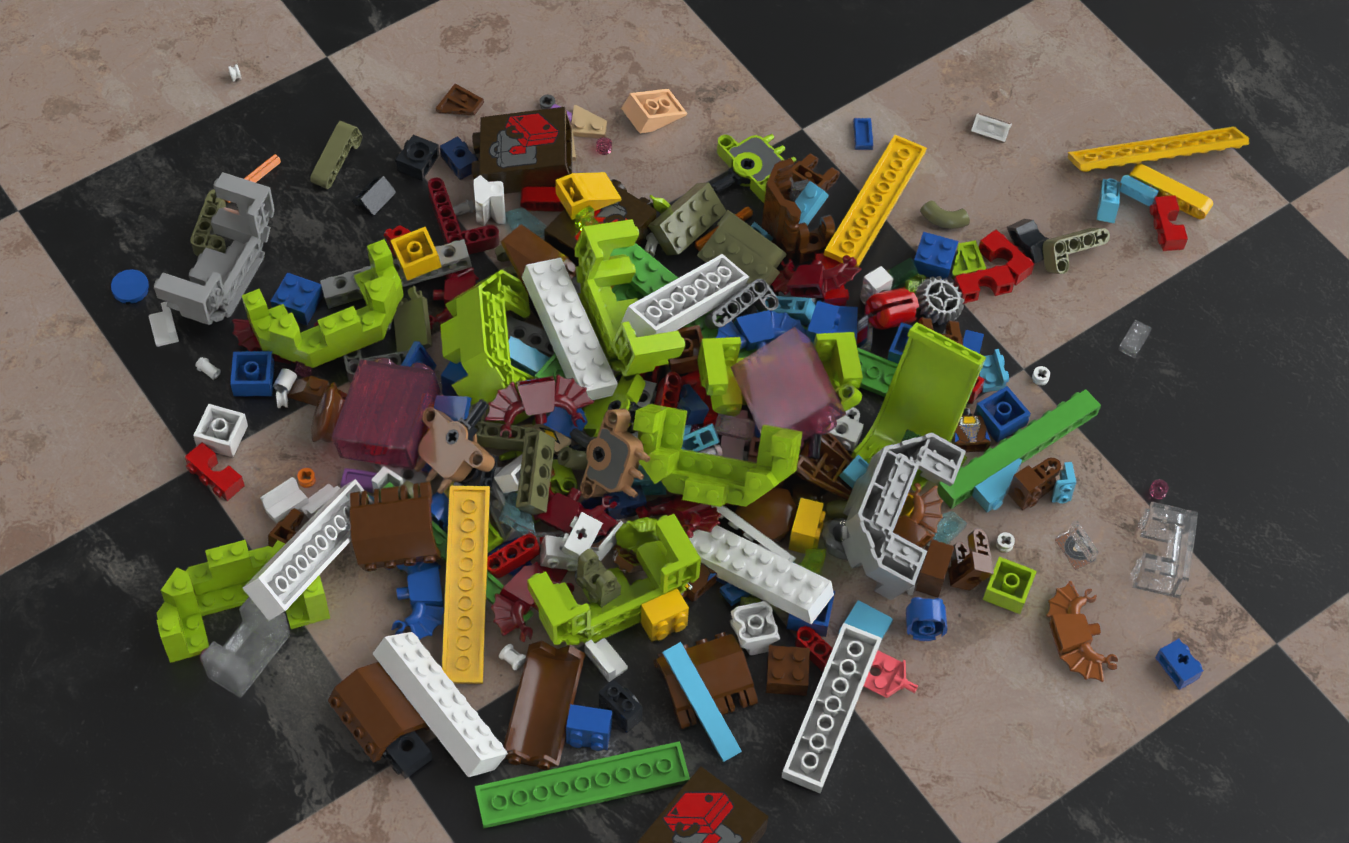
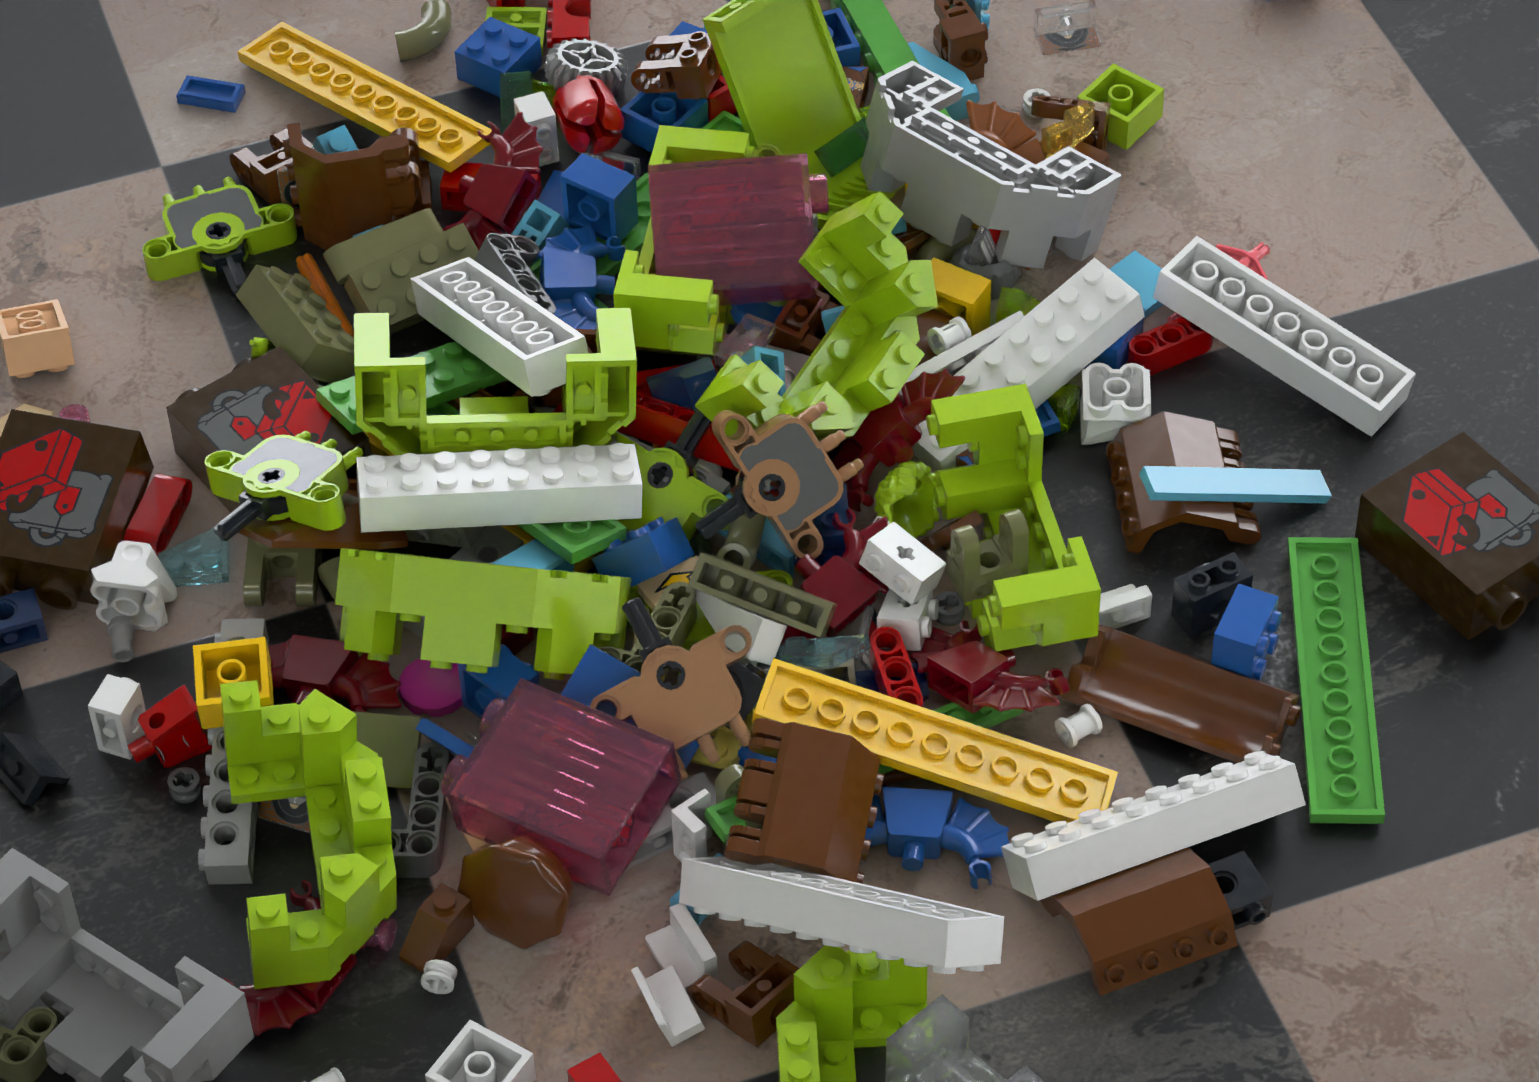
camera: 70 degrees left, 10 degrees down
(252, 373) = (370, 1008): blue brick -> none
(285, 380) = (399, 966): white beam -> none
(298, 297) = (214, 916): blue brick -> none
(304, 482) = (619, 957): orange bush -> none
(363, 477) = (654, 887): medium lavender tile -> none
(404, 214) = (115, 715): none -> white brick
(476, 239) = (144, 661): dark red beam -> none
(537, 399) = (634, 544): dark red torso -> none
(545, 234) = (281, 481): none -> lime piece
(585, 189) = (212, 421): yellow slope -> none
(586, 218) = (262, 429): clear neon green panel -> none
(664, 615) = (1070, 497): yellow brick -> none
(767, 526) = (949, 335): none -> white bush
(787, 670) = (1195, 382): reddish brown brick -> none
(926, 618) = (1152, 205): blue brick -> none
(953, 554) = (1074, 128): none -> clear yellow slope
(1074, 634) = (1211, 62): dark orange torso -> none

